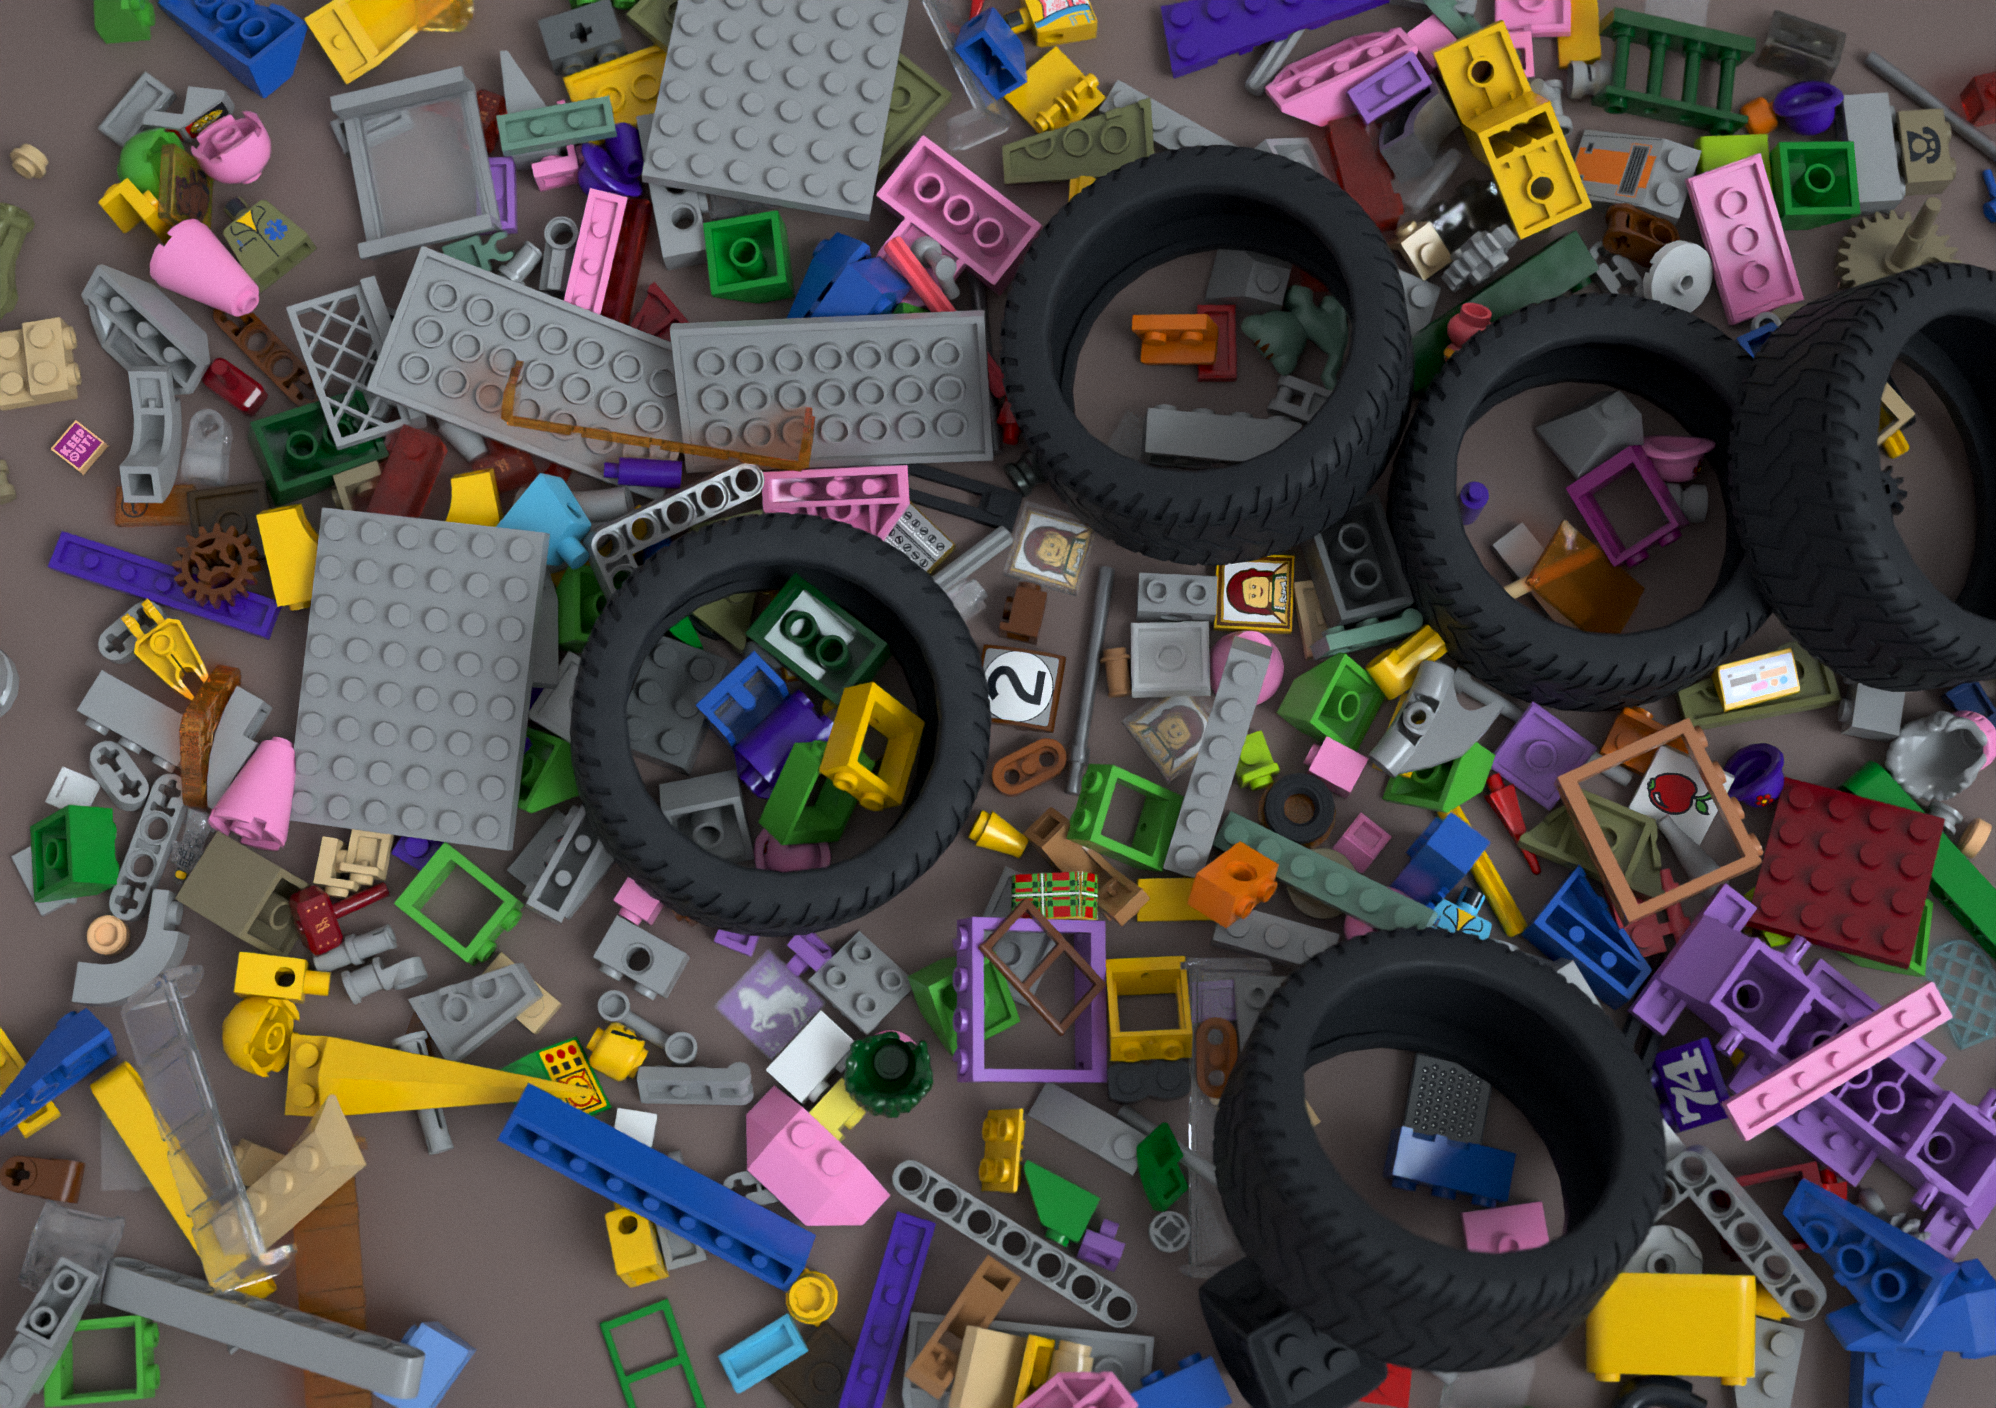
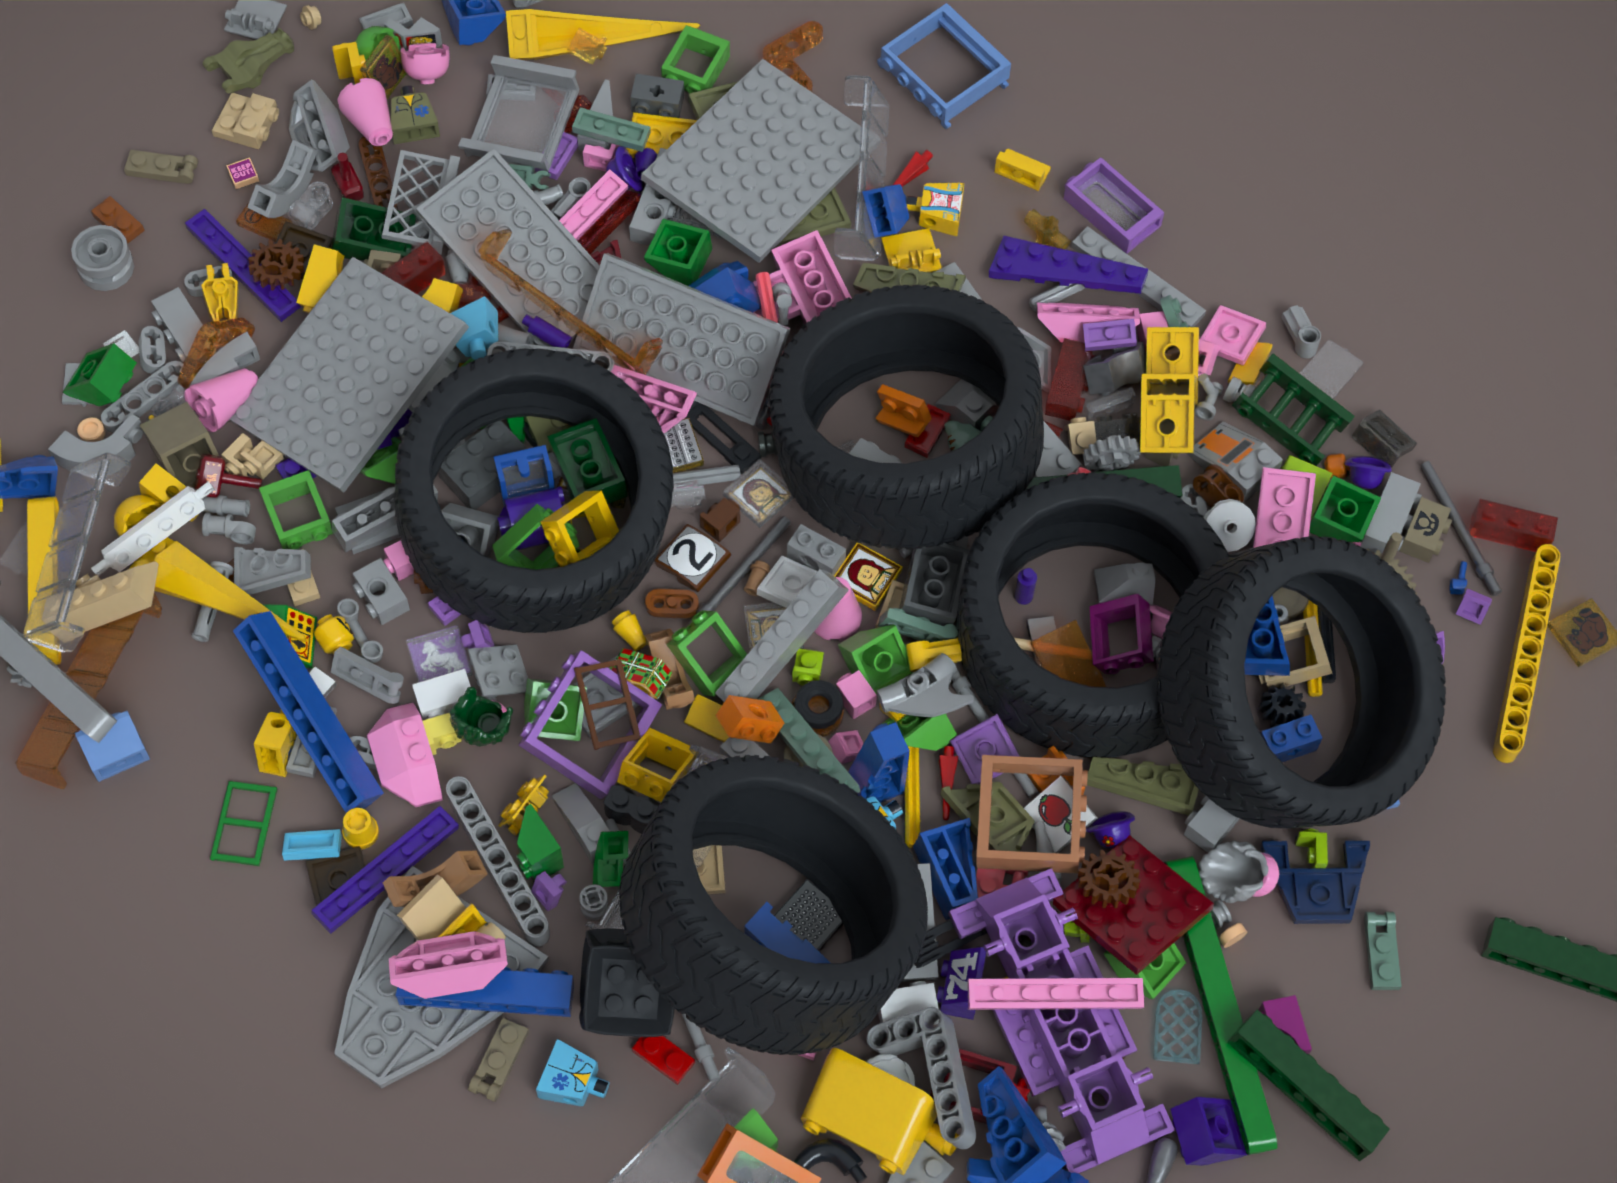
camera: 25 degrees right, 15 degrees down
(290, 1040) = (153, 529): none -> white plate
(1756, 679) = (1144, 770): slope -> none
(1810, 879) = (1108, 878): none -> reddish brown gear
(1921, 524) = (1293, 738): none -> blue brick

